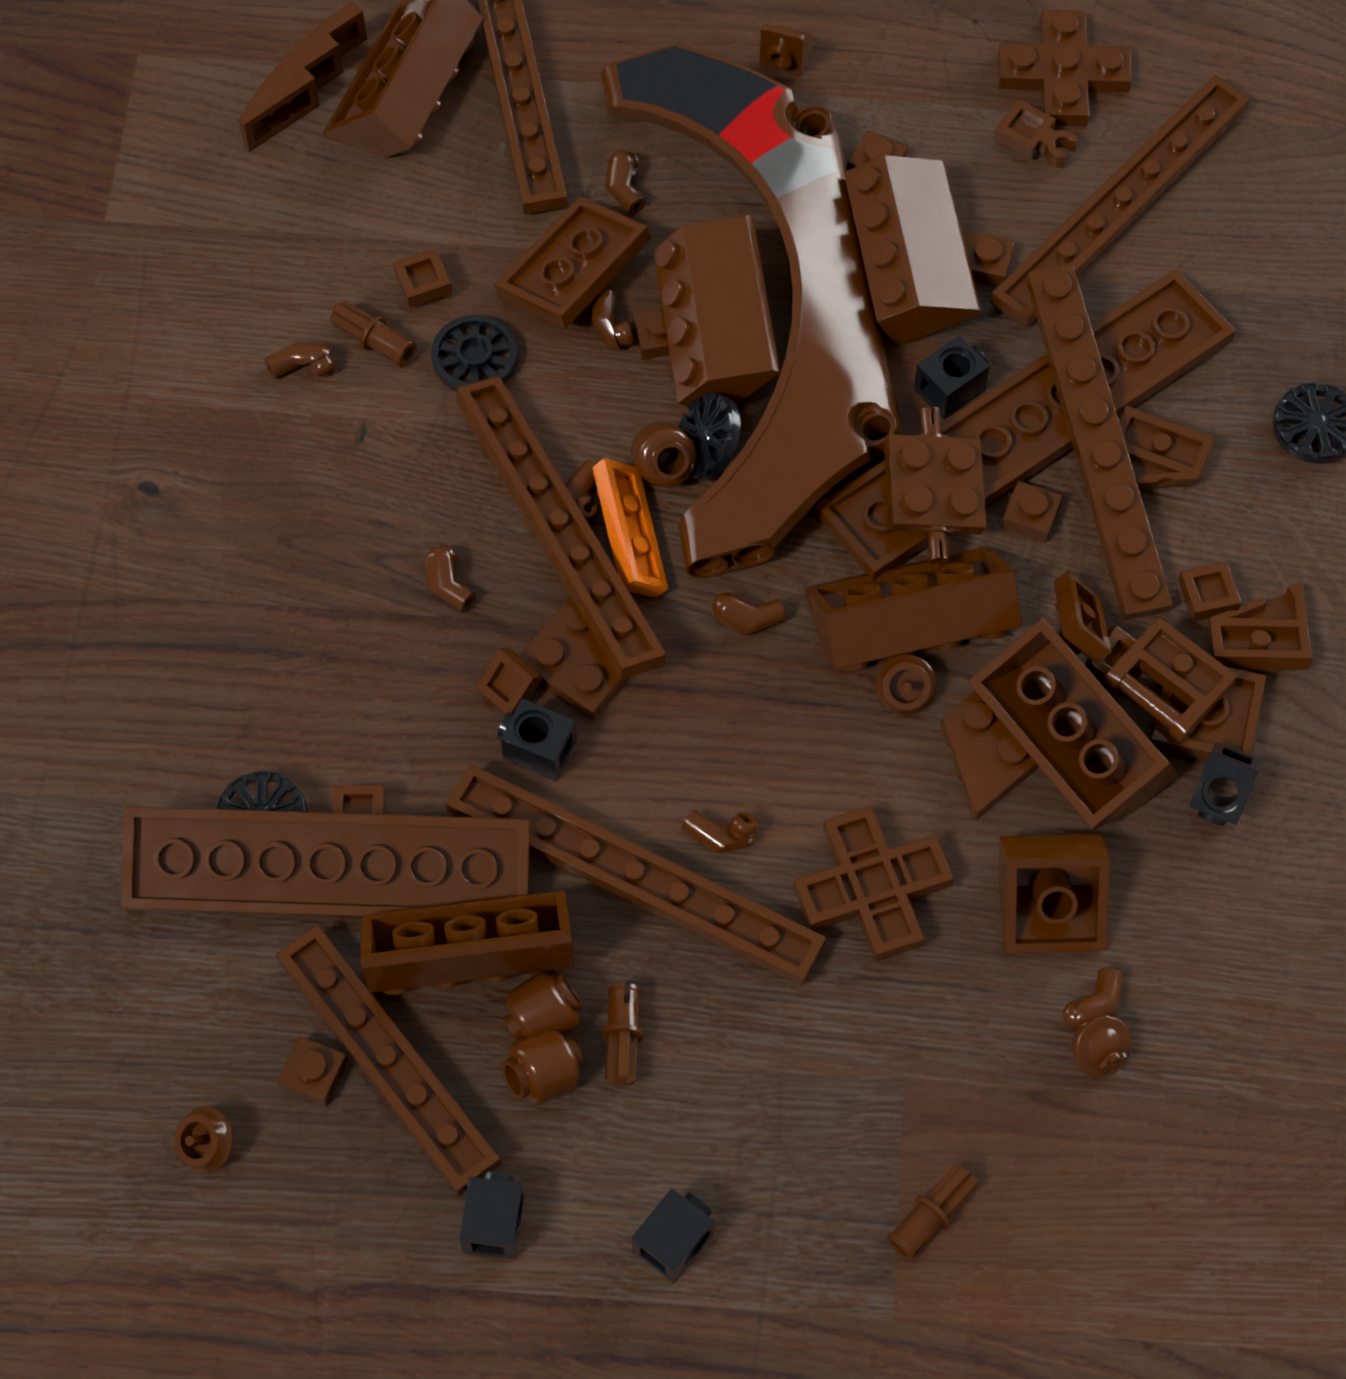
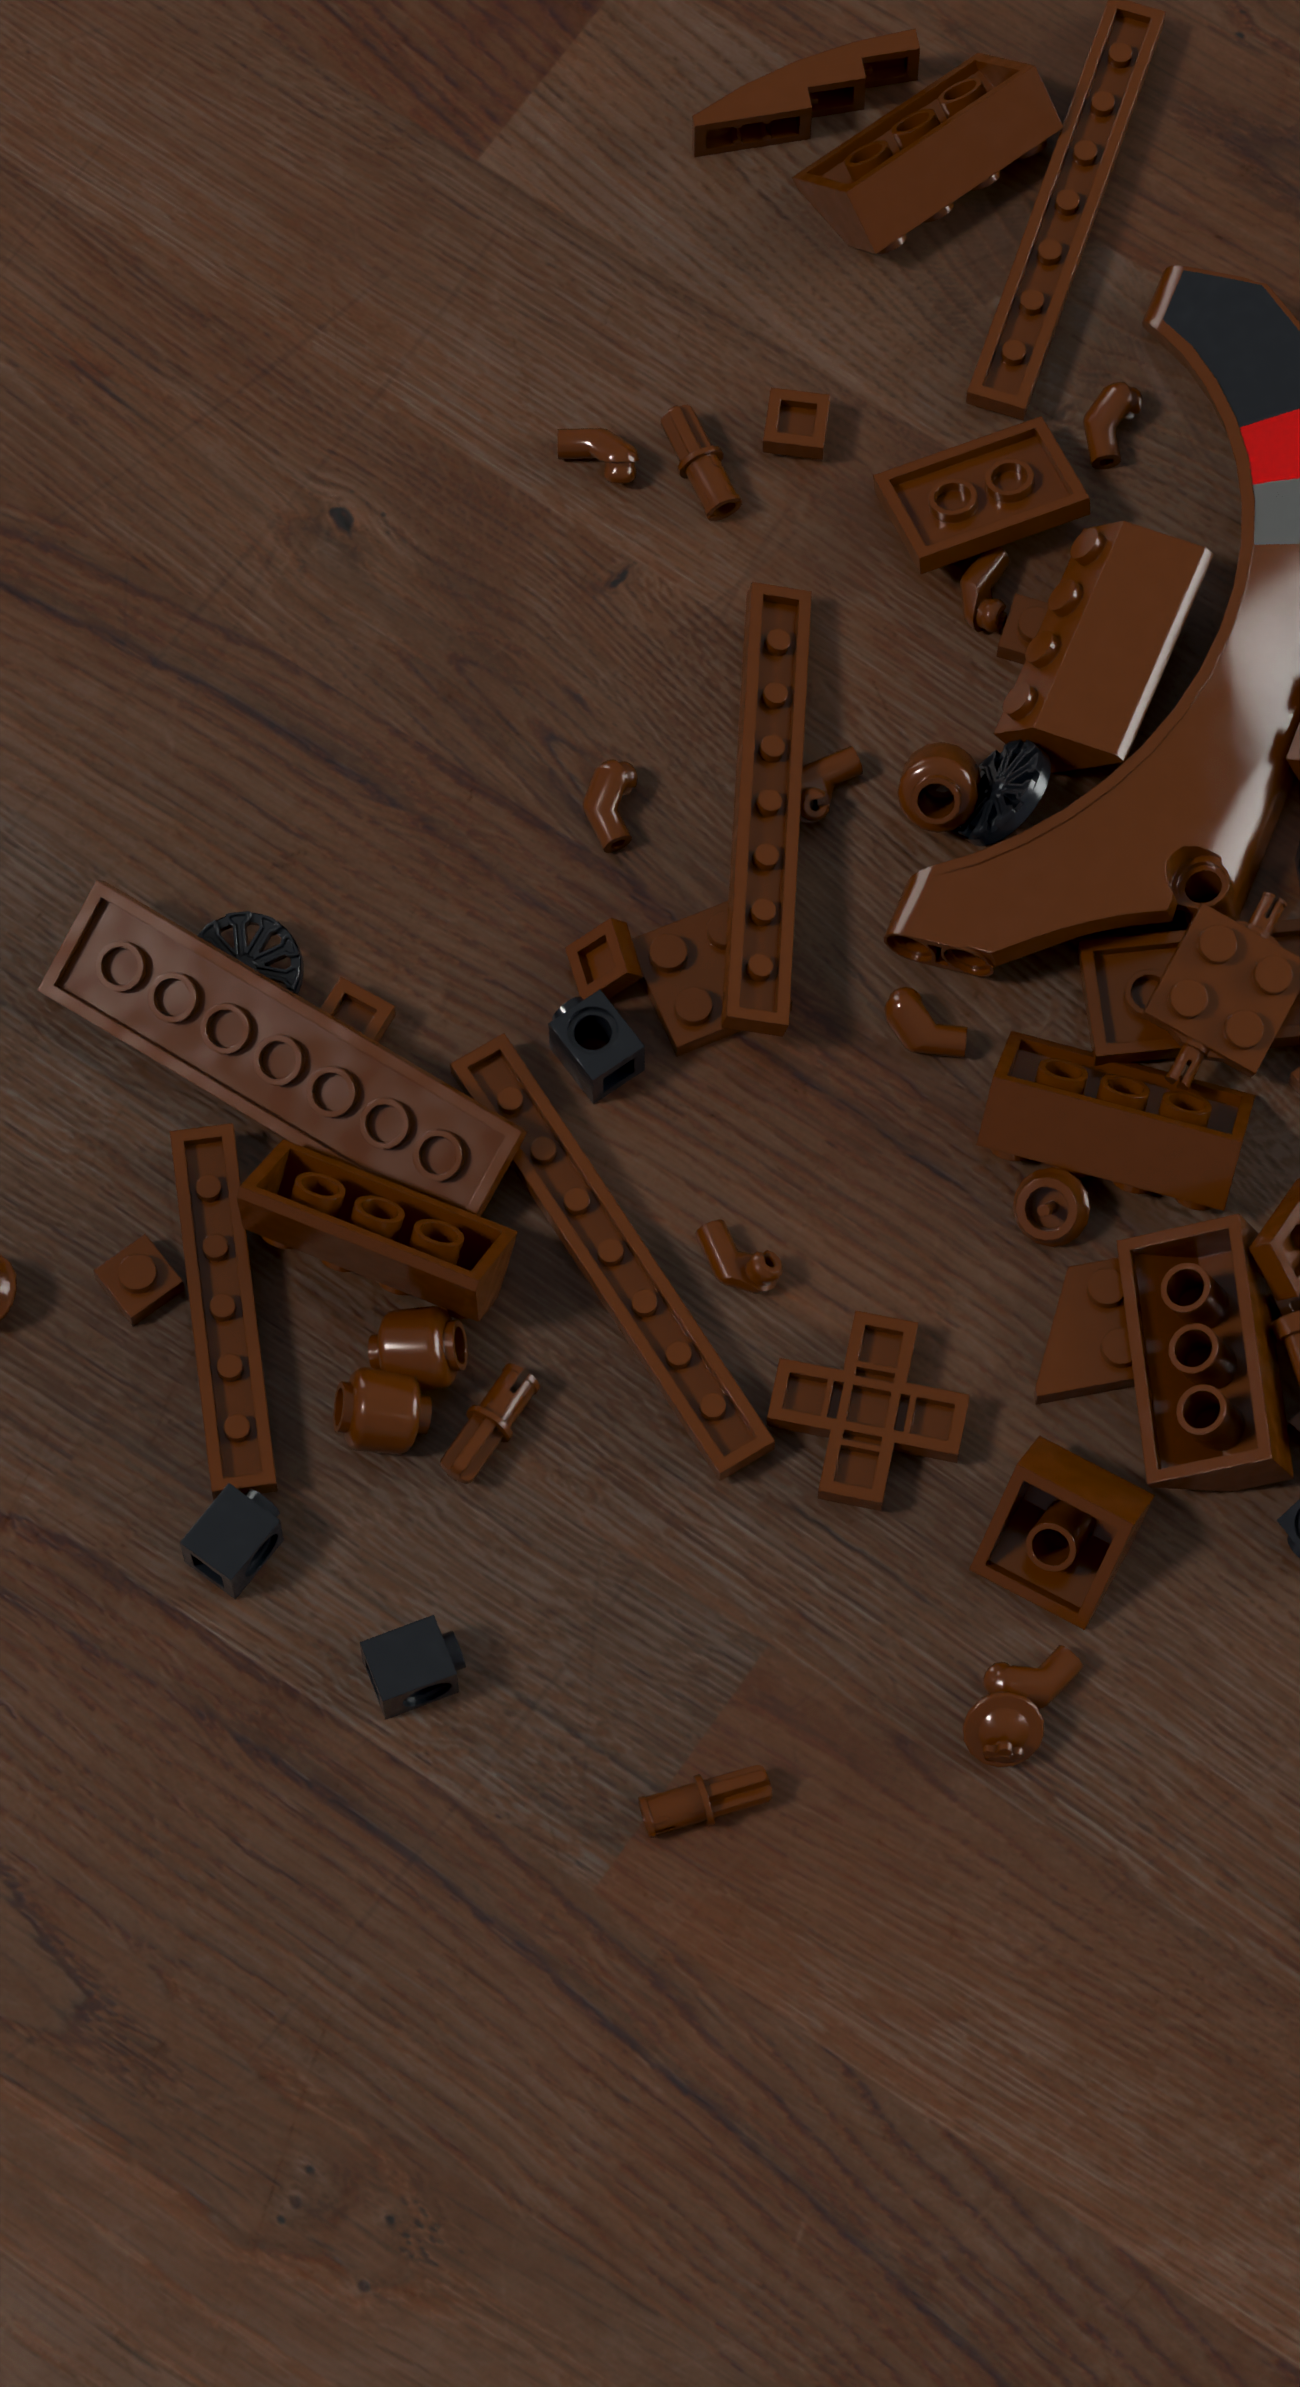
camera: 30 degrees right, 5 degrees up
(473, 351) = (804, 545): black wheel -> none
(630, 528) = (849, 855): orange plate -> none

